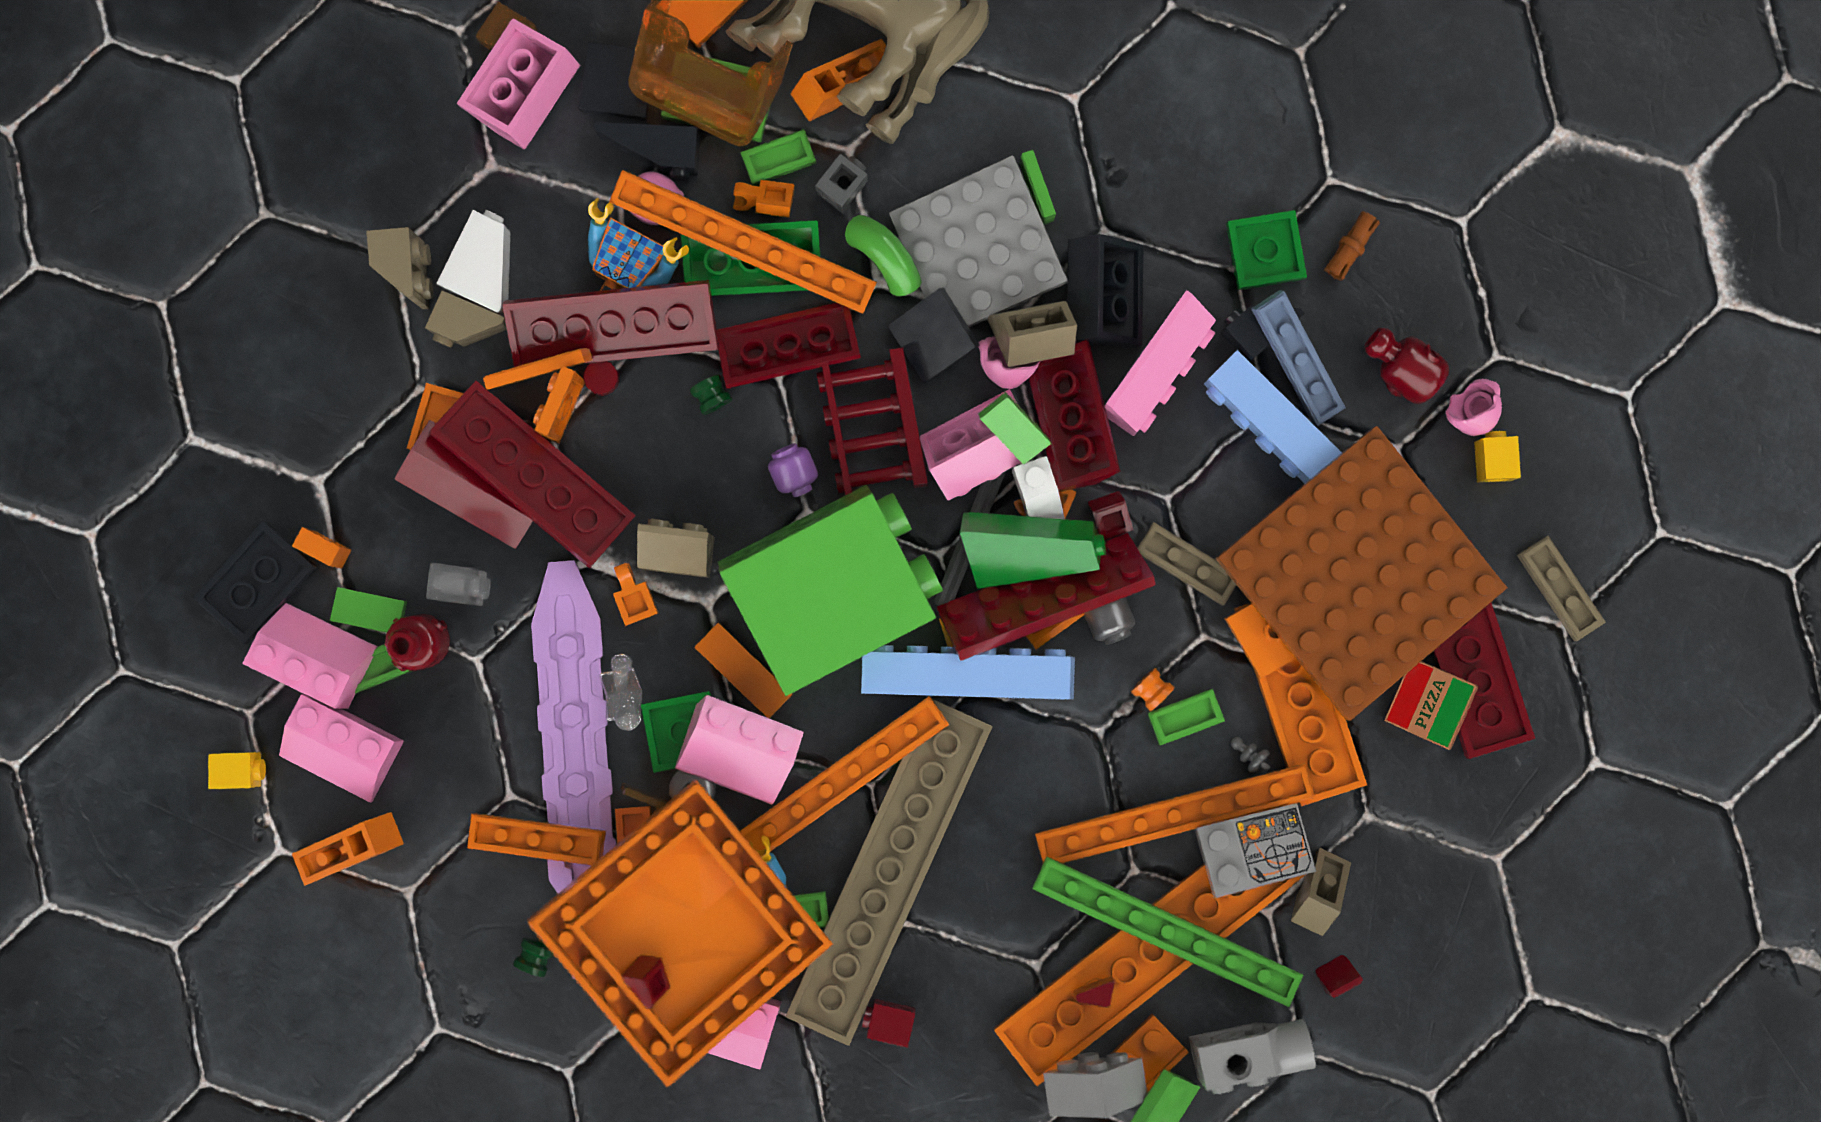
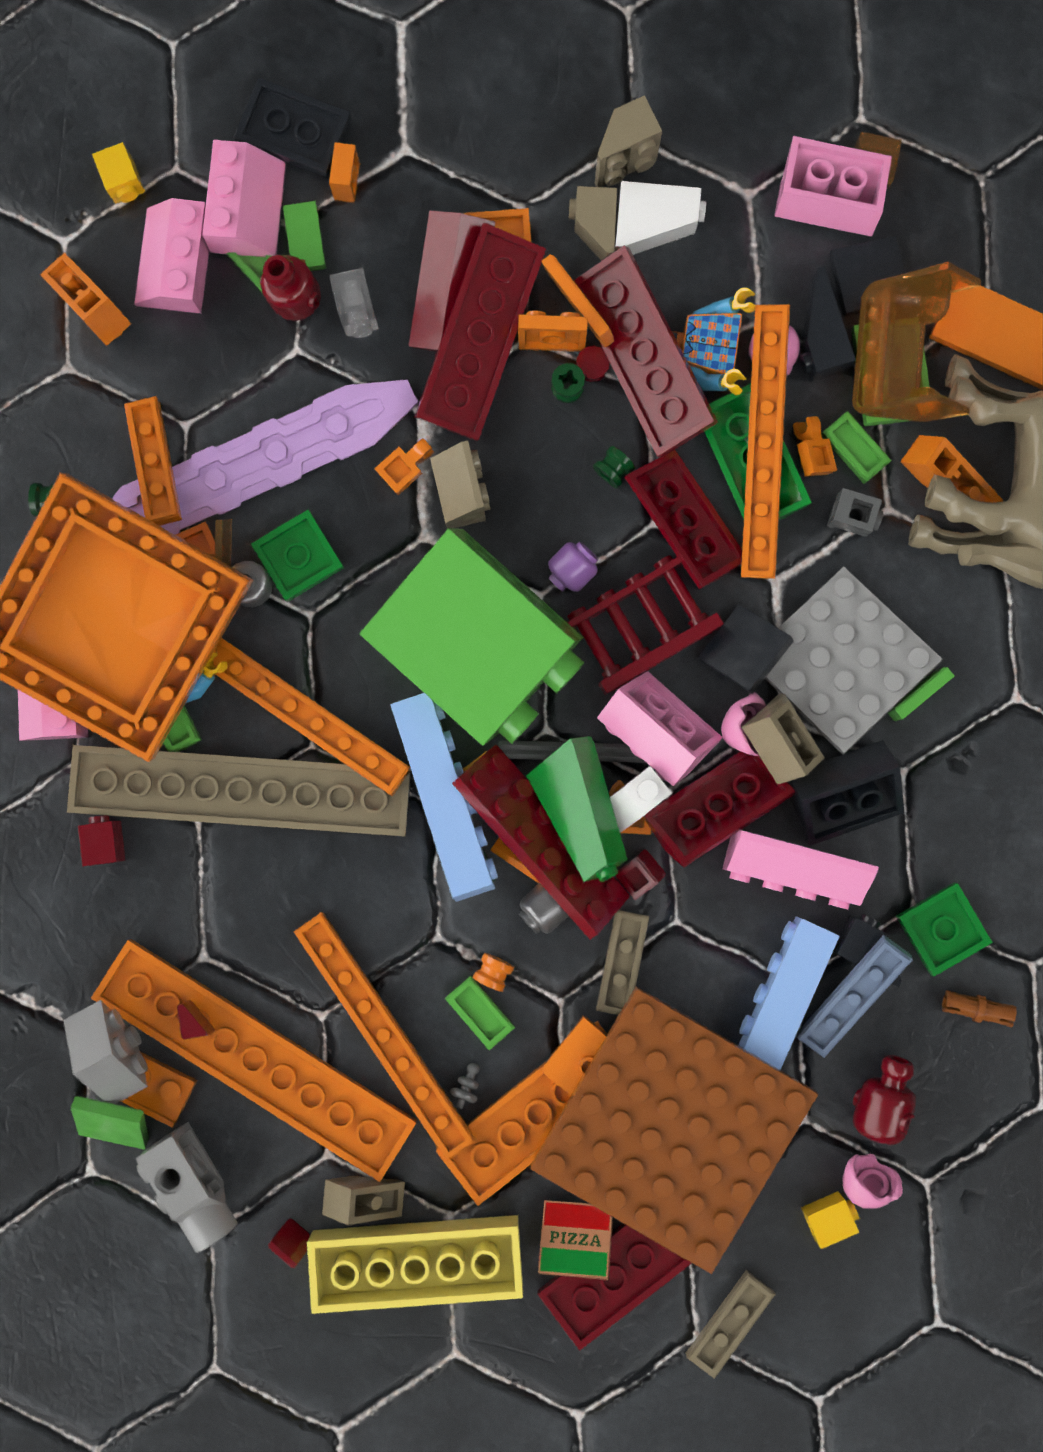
camera: 70 degrees right, 0 degrees up
(617, 412) = (567, 390): none -> dark green wheel
(622, 693) = (311, 489): clear piece -> none
(647, 979) = (51, 602): dark red slope -> none
(738, 749) = (297, 611): bright pink slope -> none
(742, 670) = (373, 587): orange tile -> none
(885, 252) = (805, 577): bright green cylinder -> none
(1014, 428) = (686, 752): tile -> none
(1167, 931) = (274, 1068): bright green tile -> none
(1255, 850) = (377, 1123): light grey slope -> none
(1400, 863) = (415, 1264): none -> light yellow brick

